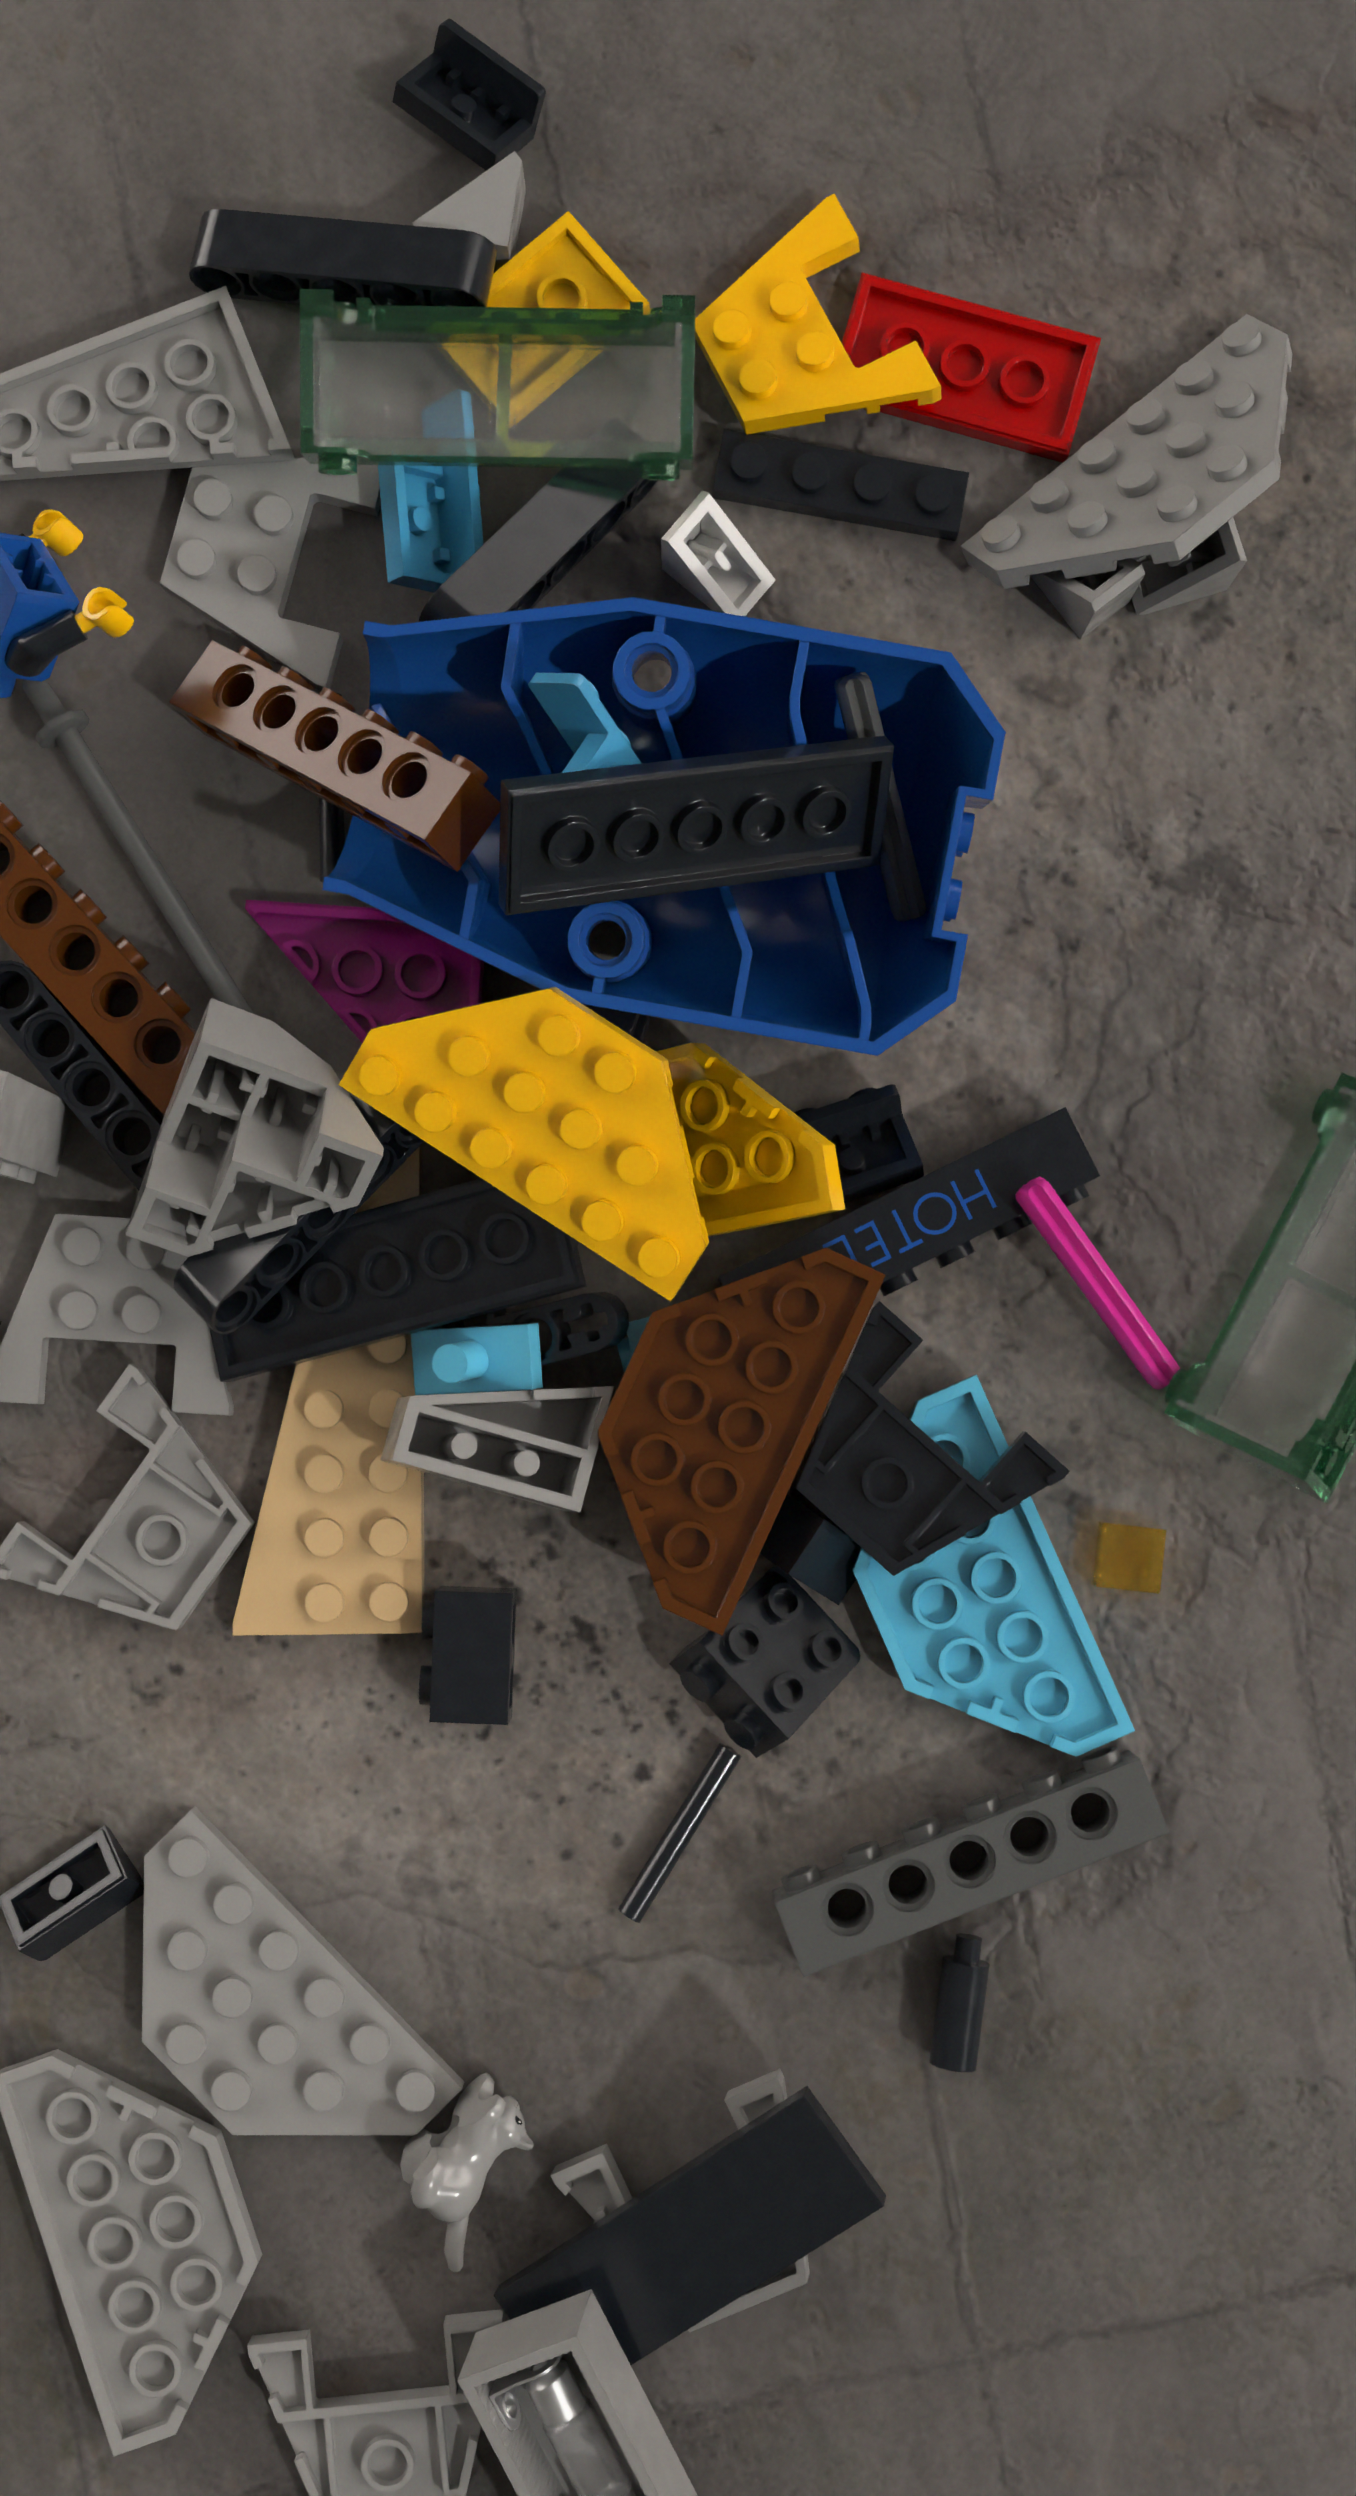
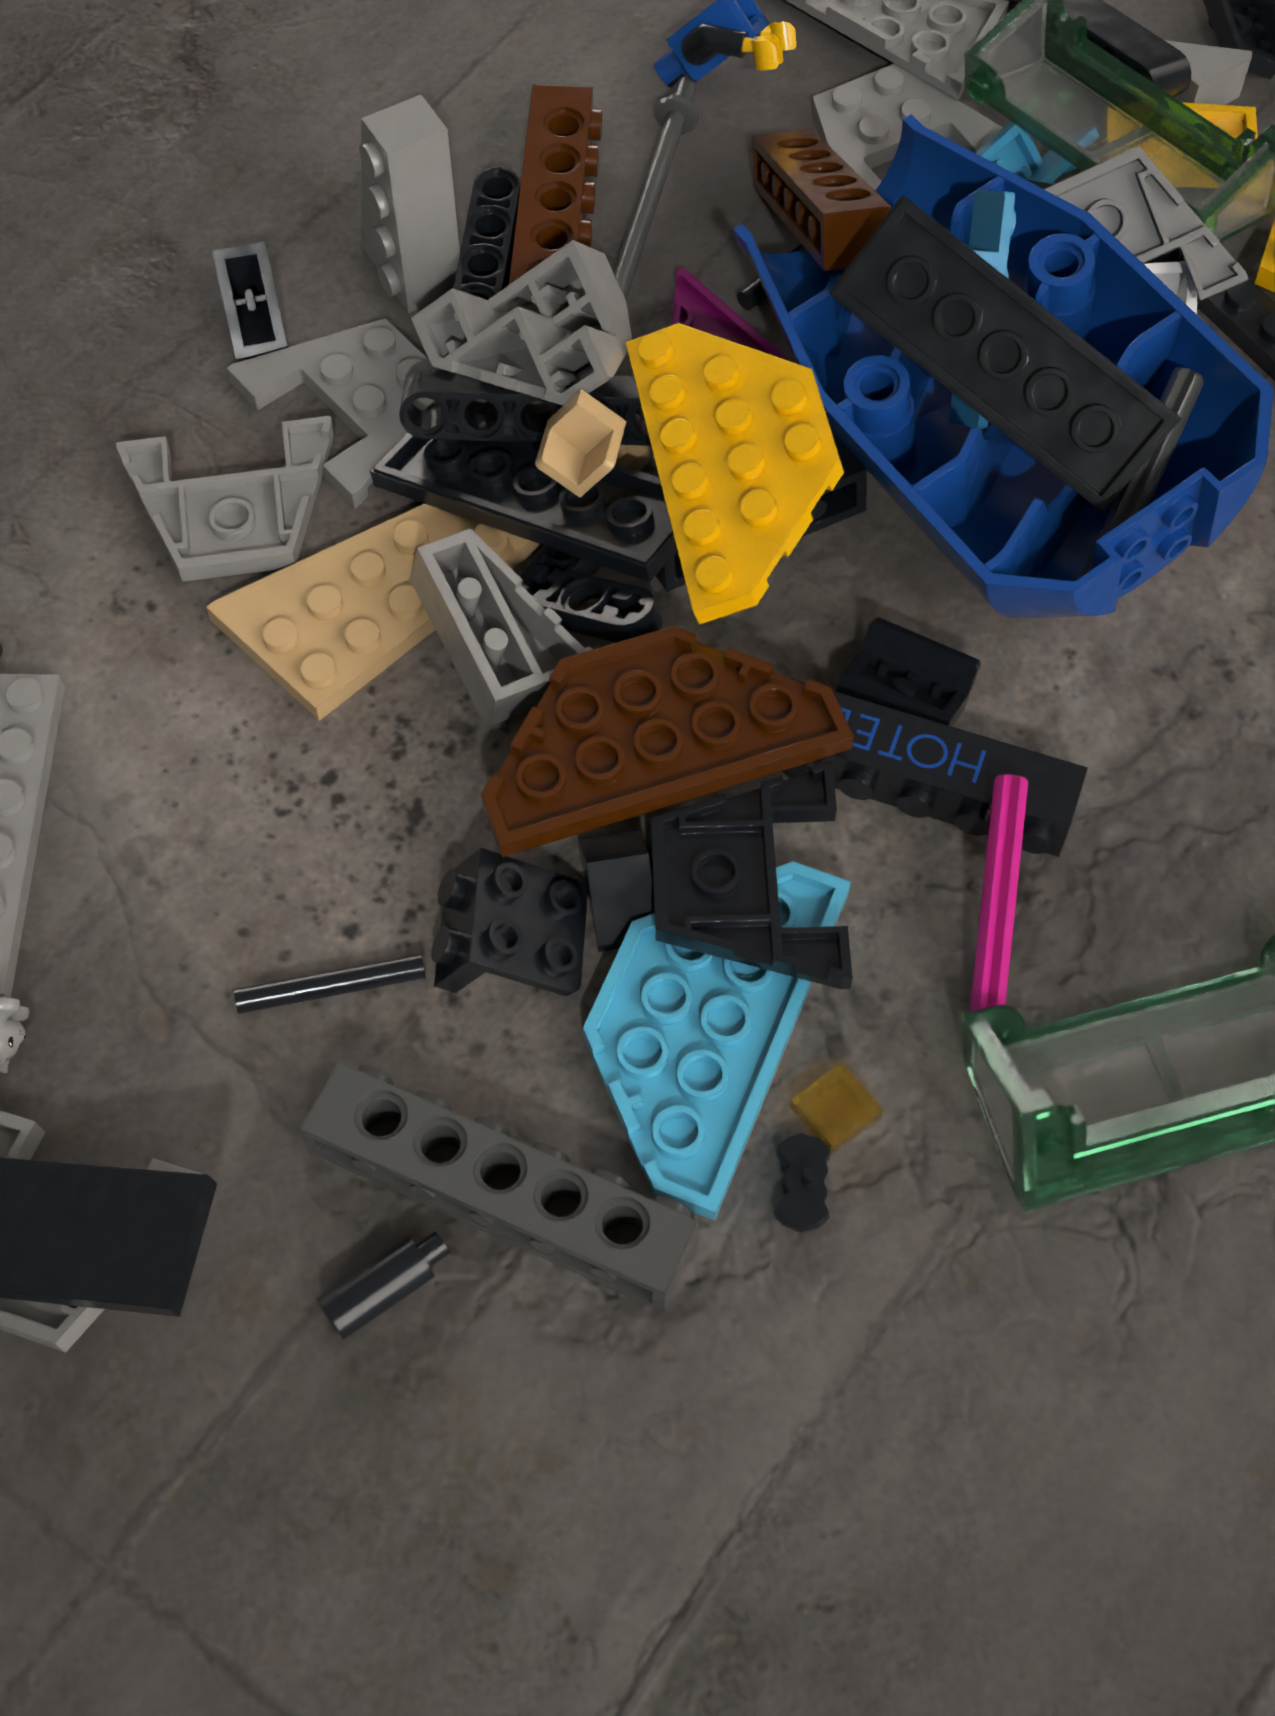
camera: 45 degrees right, 25 degrees down
(407, 1222) = (580, 443): none -> tan panel
(470, 1655) = (331, 745): black brick -> none
(477, 1359) = (545, 576): medium azure tile -> none
(621, 520) = (1151, 218): none -> light grey wing
(747, 1149) = (827, 608): yellow plate -> none
(1176, 1651) = (803, 1184): none -> black piece

